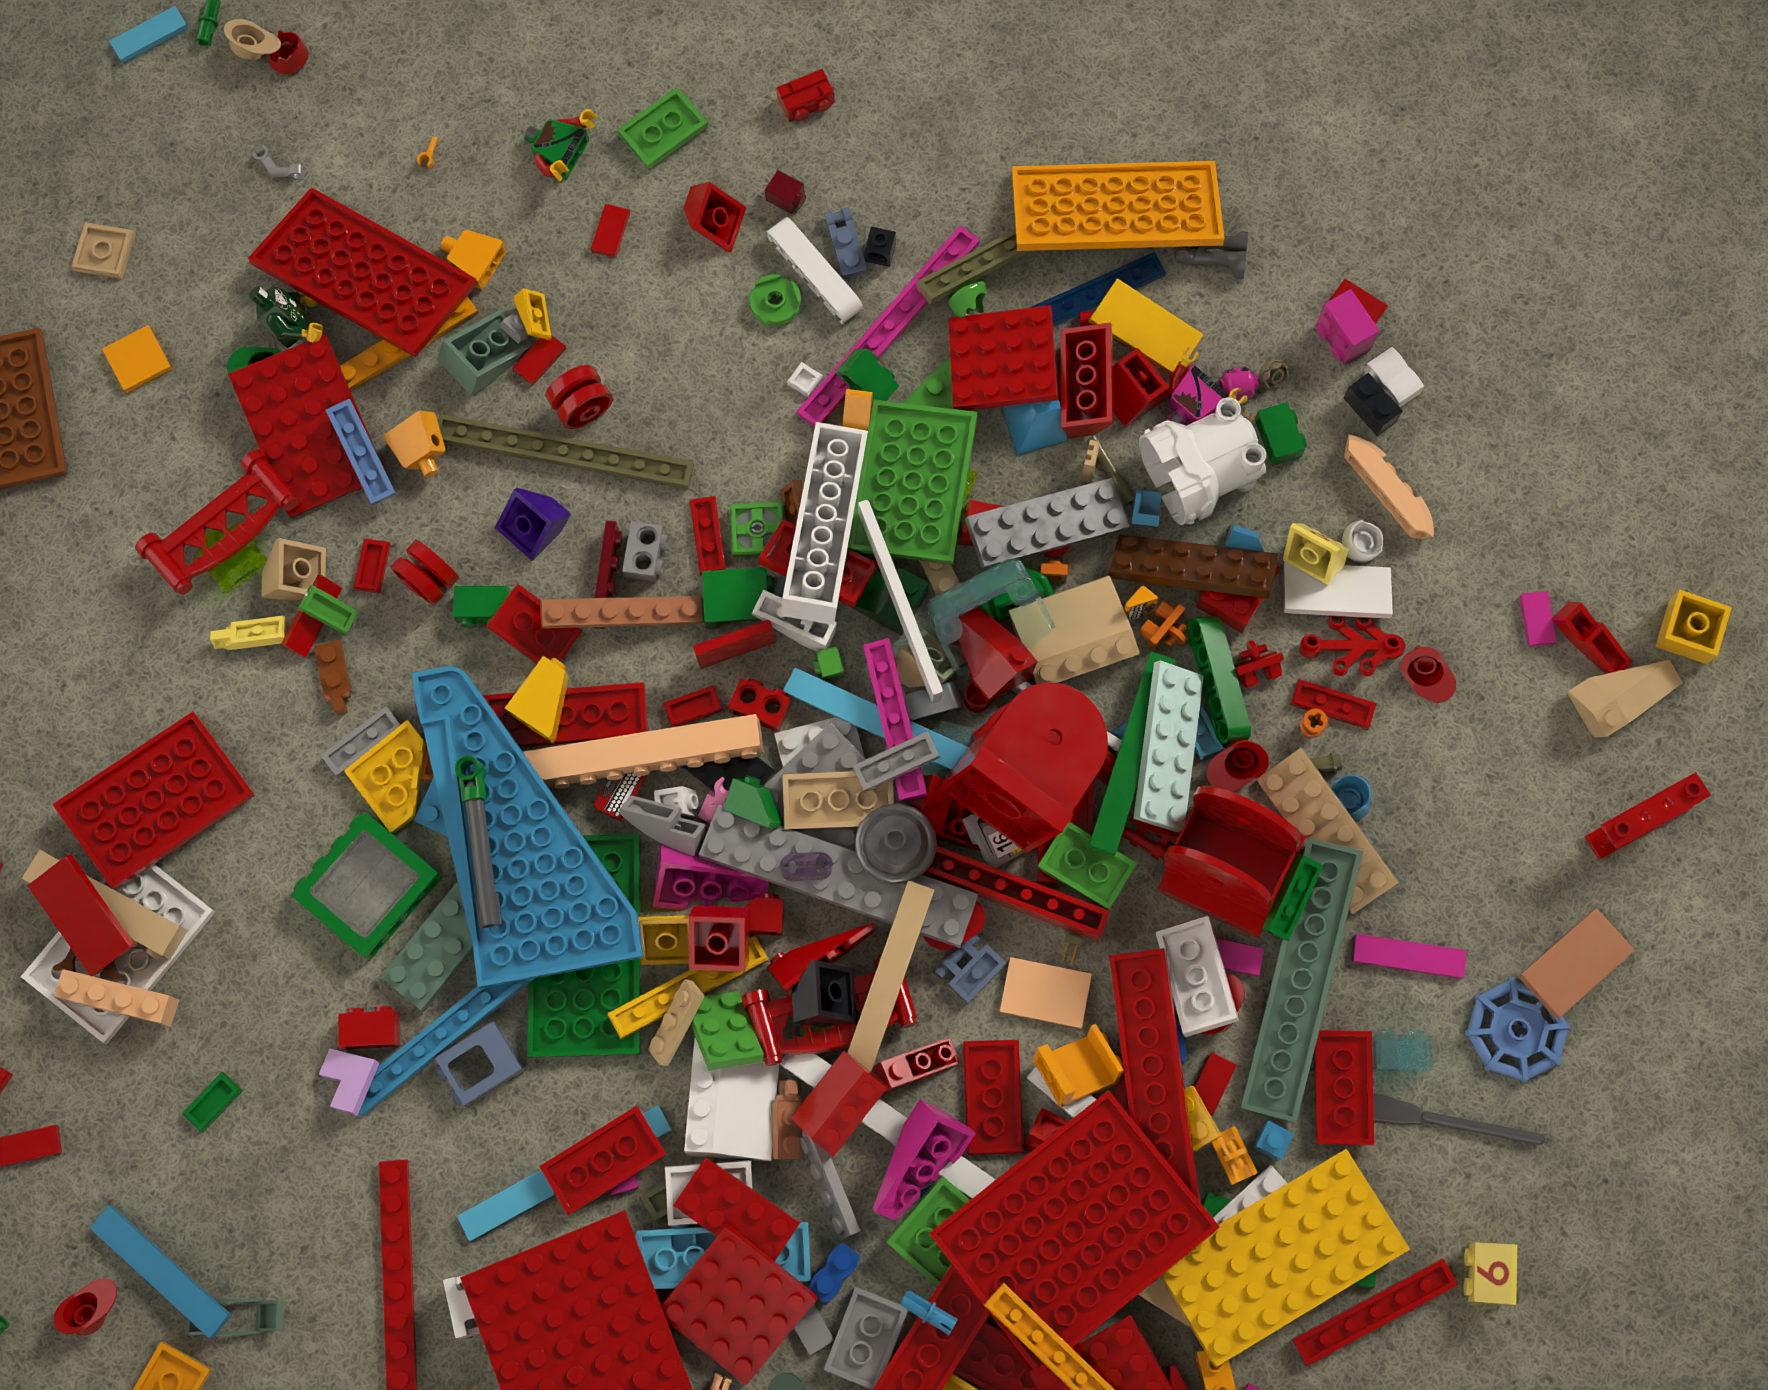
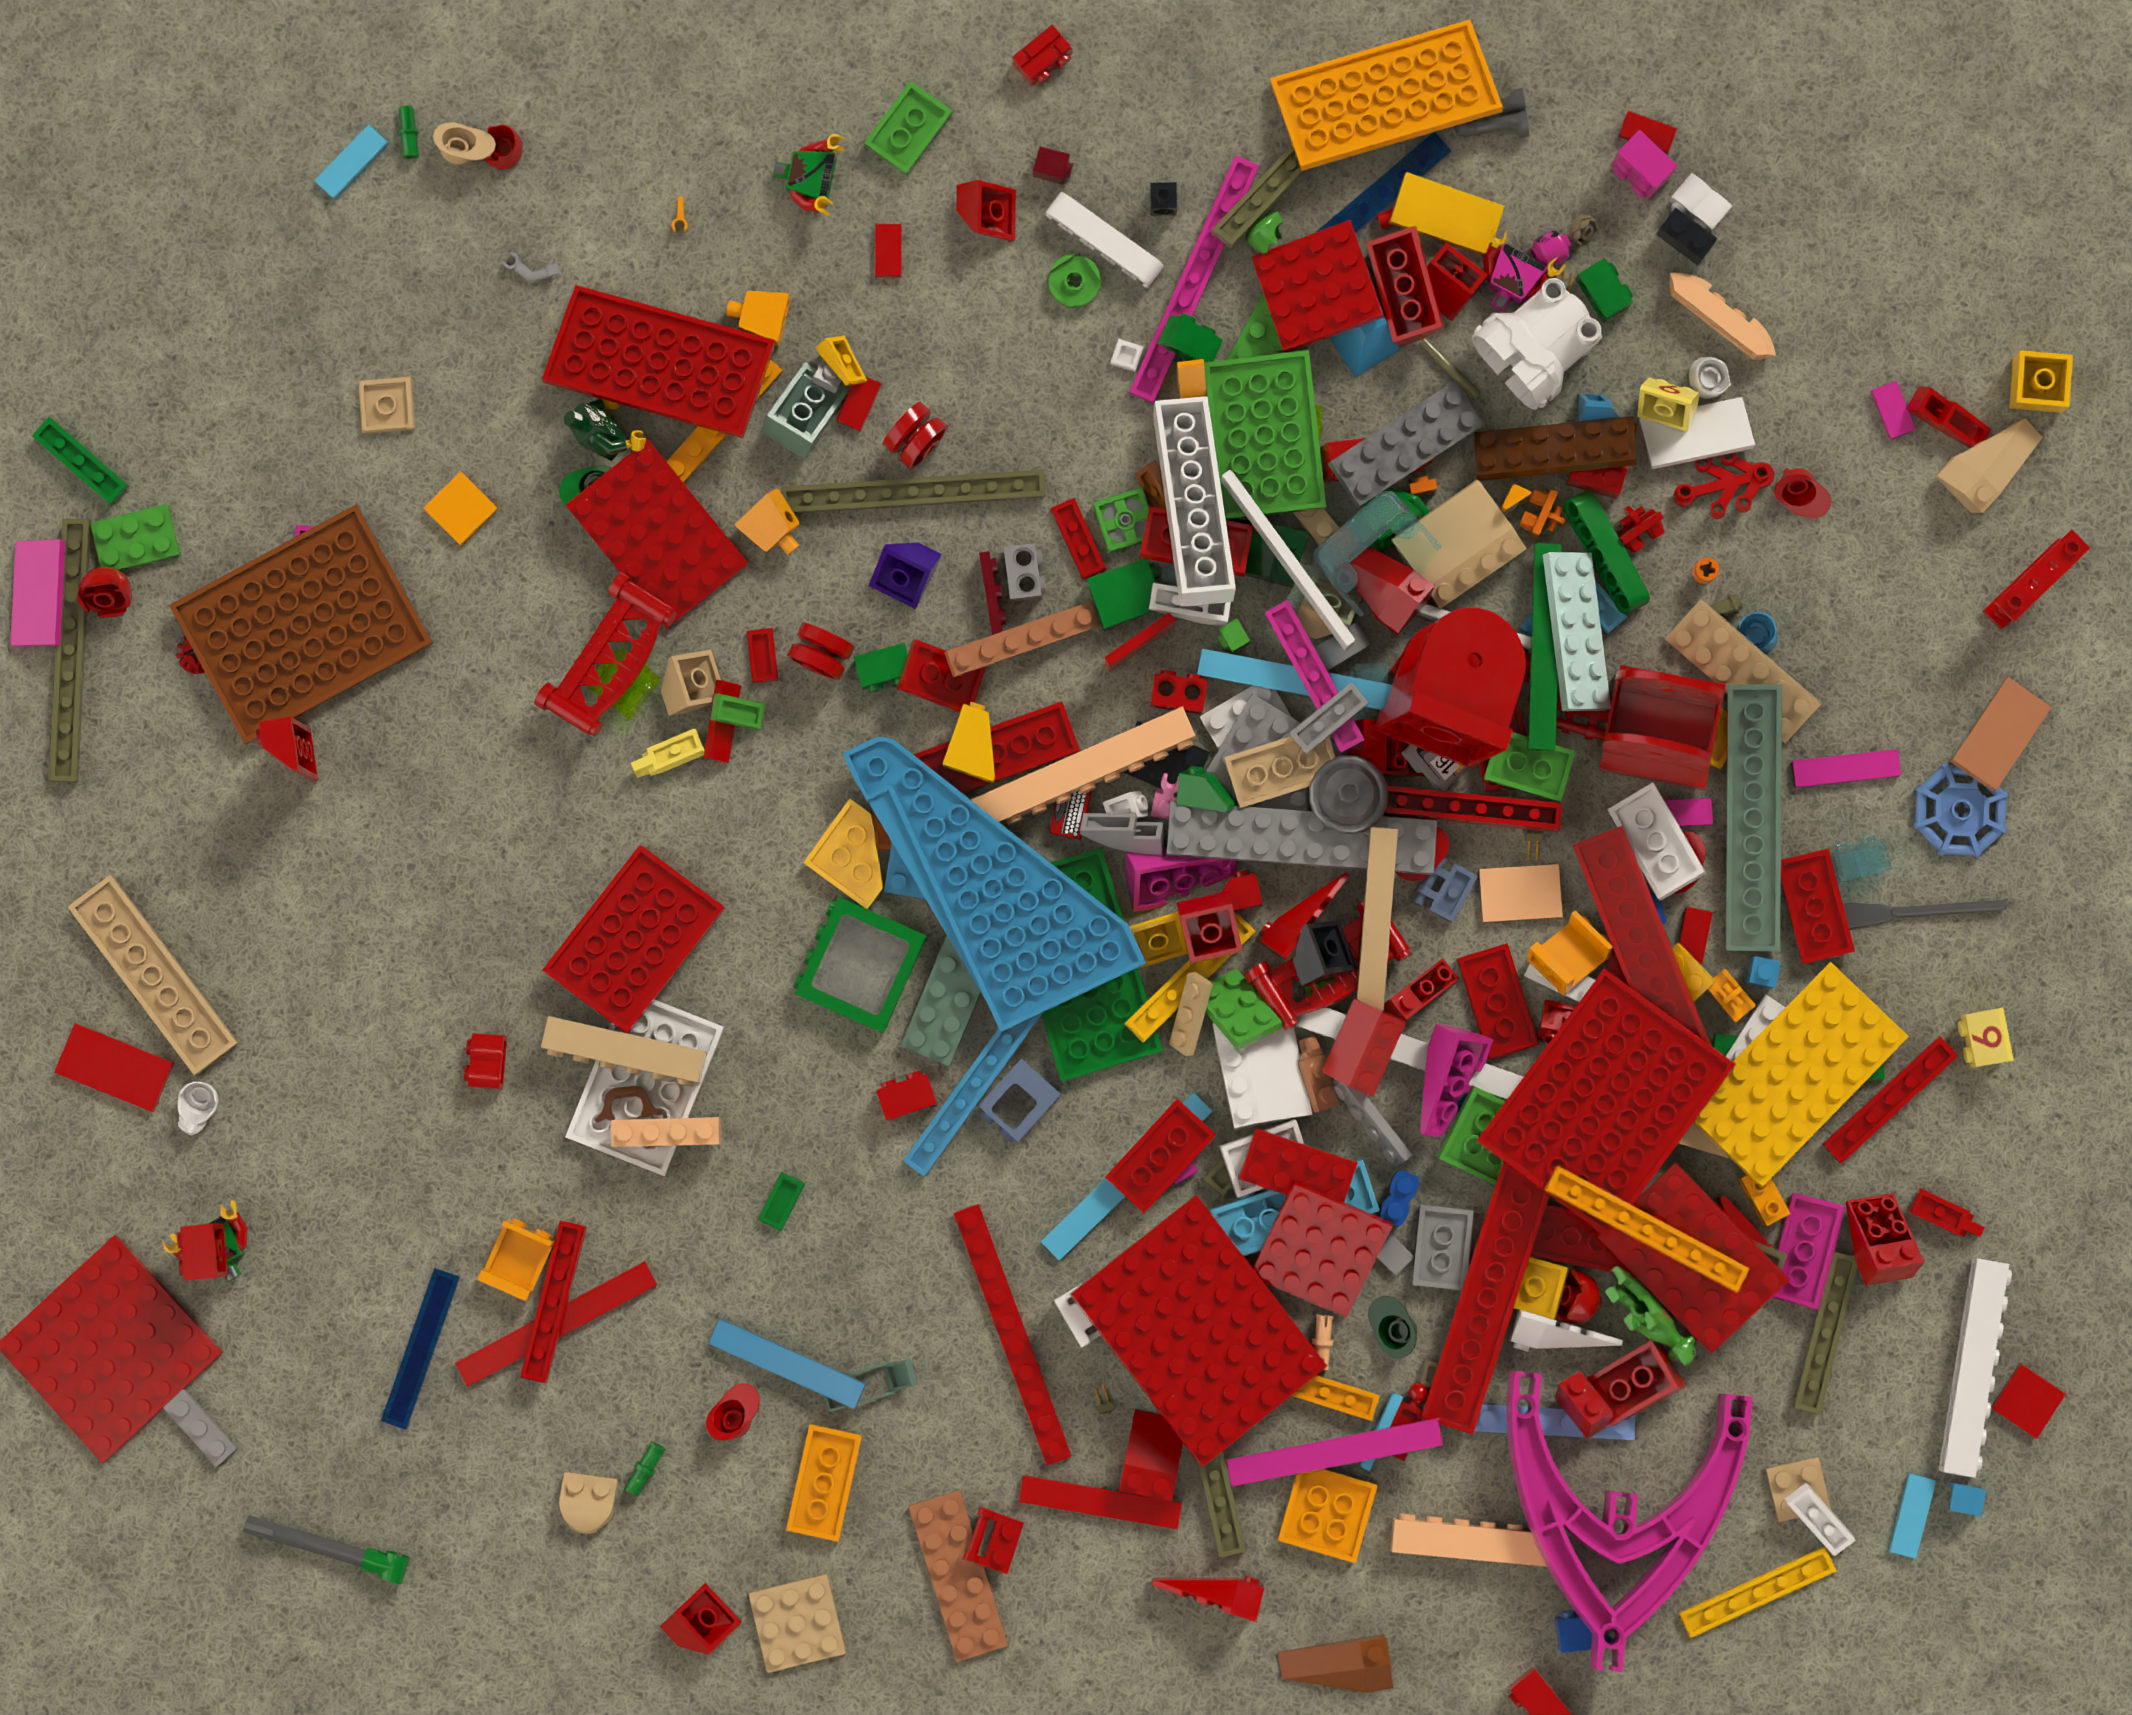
camera: 15 degrees left, 10 degrees up
(81, 915) = (610, 1066): red tile -> none
(333, 674) = (761, 772): dark orange hinge -> none
(355, 1078) = (908, 1141): lavender tile -> none
(360, 452) = (720, 548): medium blue plate -> none
(360, 741) = (810, 830): light grey plate -> none
(473, 795) = (942, 855): dark grey piece -> none
(692, 706) = (1114, 711): red tile -> none
(806, 860) = (1270, 832): clear purple beam -> none
(846, 243) = (1126, 202): sand blue plate -> none
(928, 1312) = (1495, 1209): dark azure axle -> none
(973, 694) = (1383, 634): red wheel -> none
(1090, 461) = (1430, 369): tan tile -> none
(1146, 507) = (1494, 400): dark azure panel -> none
(1237, 765) = (1644, 631): red piece -> none
(1292, 897) = (1727, 745): green plate -> none
(1333, 703) = (1719, 546): red tile -> none

